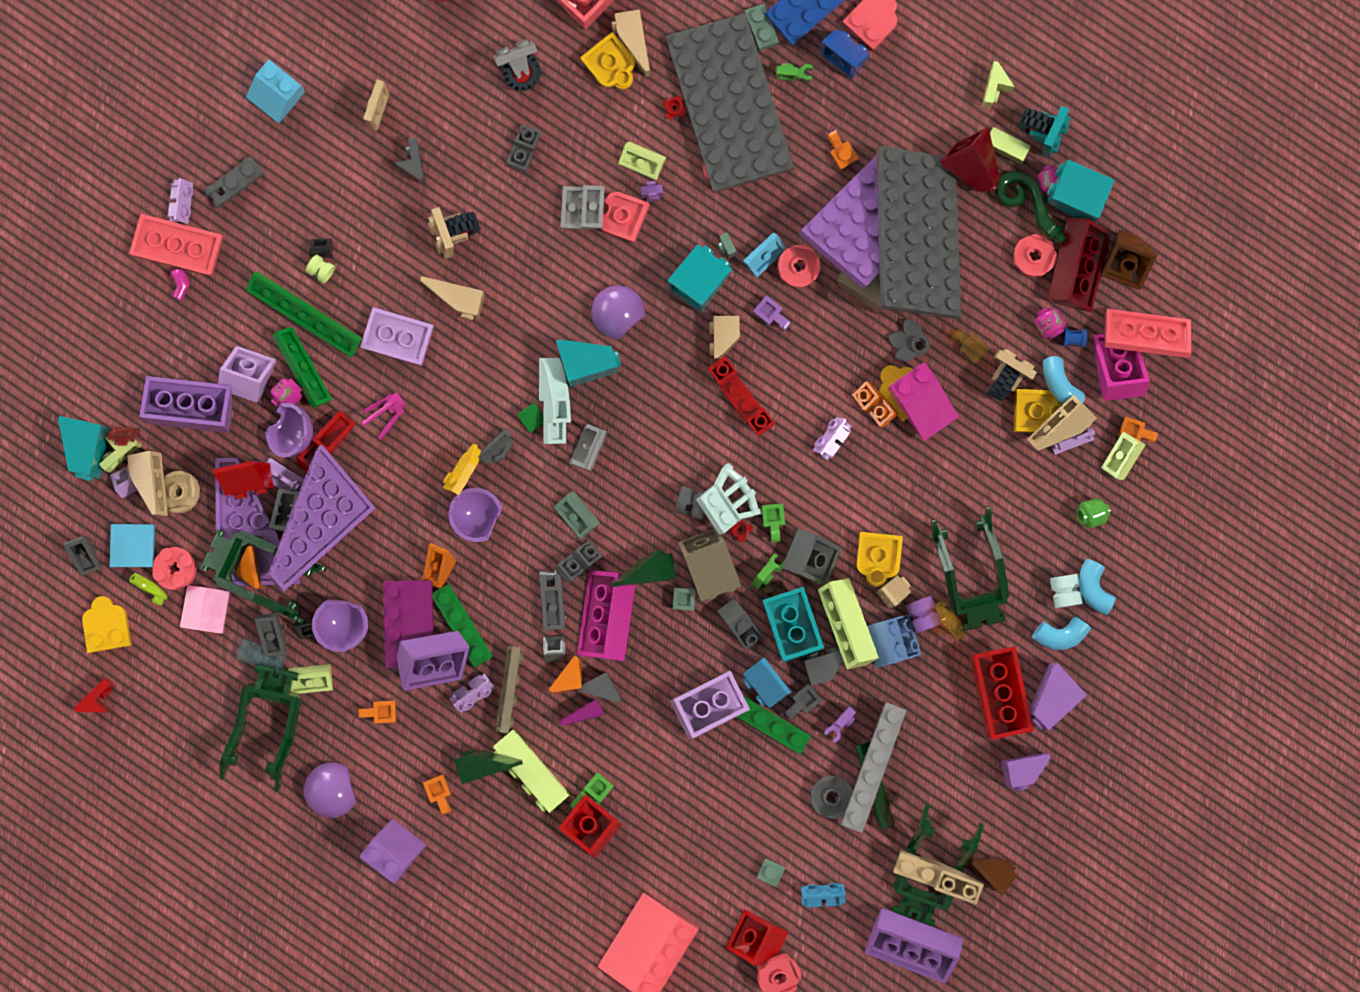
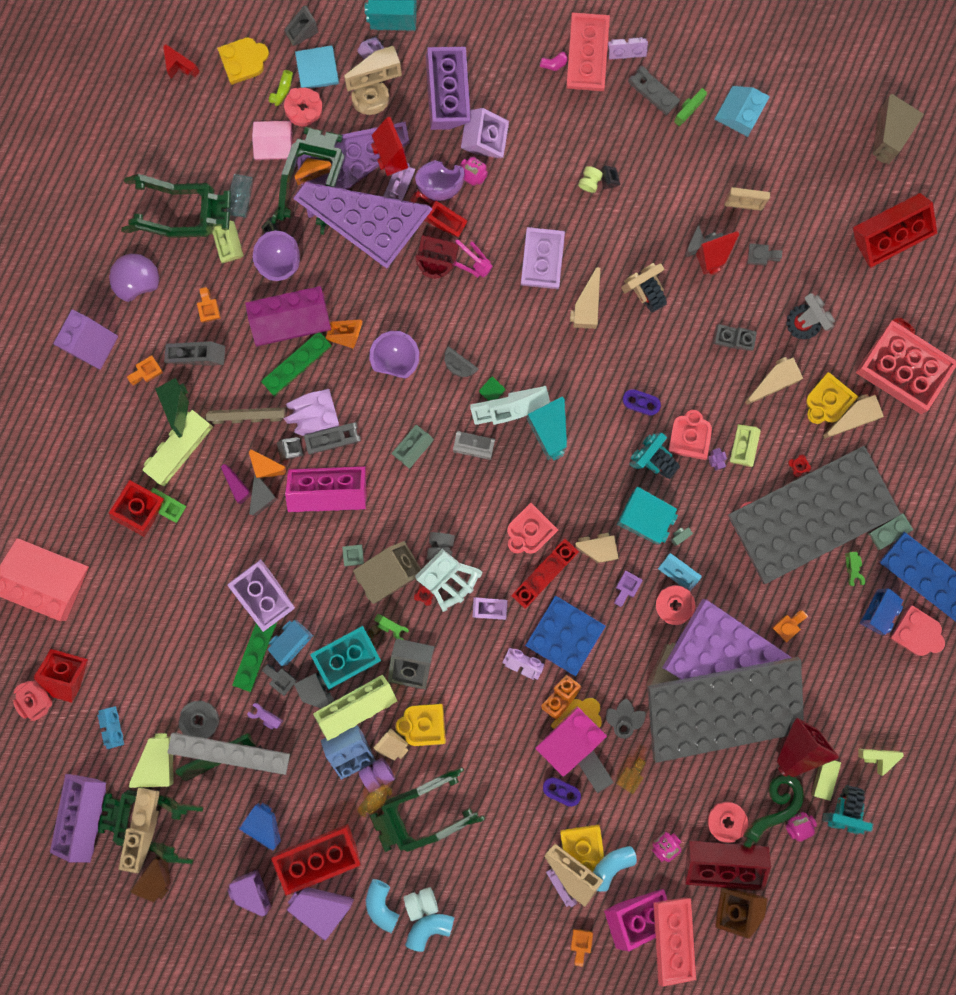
camera: 85 degrees right, 0 degrees up
(113, 459) = (398, 40): yellowish green slope -> none
(123, 435) = (410, 38): clear red slope -> none
(260, 147) = (690, 106): none -> bright green plate
(271, 634) = (258, 199): dark grey slope -> none
(282, 510) = (370, 186): dark grey slope -> none
(302, 367) = (499, 180): green plate -> none
(304, 314) = (547, 173): green plate -> none
(373, 451) = (436, 256): none -> dark red slope
(430, 149) = (715, 253): none -> red slope
(430, 735) = (195, 353): none -> dark grey slope
(432, 660) = (258, 341): medium lavender slope -> none
(438, 103) = (759, 254): none -> dark grey plate
(458, 478) = (424, 334): yellow plate -> none
(465, 699) = (231, 378): lavender hinge -> none
(520, 616) = (312, 413): none -> lavender plate
(575, 261) = (641, 402): none -> dark purple plate
(576, 111) = (780, 376): none -> tan slope
(578, 561) = (370, 455): dark grey slope -> none
(582, 207) = (691, 399): light grey slope -> none
(617, 311) = (603, 448): medium lavender cylinder -> none
(637, 257) = (655, 456): none -> teal plate
(651, 569) = (373, 519): dark green slope -> none
(692, 405) = (529, 531): none -> coral plate
(740, 624) = (339, 609): dark grey slope -> none
(768, 462) = (489, 608): none -> lavender slope
(770, 872) = (123, 677): sand green plate -> none
(773, 517) = (440, 622): bright green plate -> none
(810, 388) = (565, 635): none -> blue plate
(870, 851) = (155, 764): none -> yellowish green slope
(955, 745) = (262, 826): none -> blue slope
(960, 382) = (595, 772): none -> dark grey slope
(973, 422) = (561, 791): none -> dark purple plate
(1009, 374) = (610, 816): plate -> none
(1074, 337) = (657, 872): blue bush -> none
(1079, 191) = (795, 854): teal slope -> none
(1093, 513) = (497, 917): bright green head -> none
(1123, 456) = (555, 936): yellowish green slope -> none

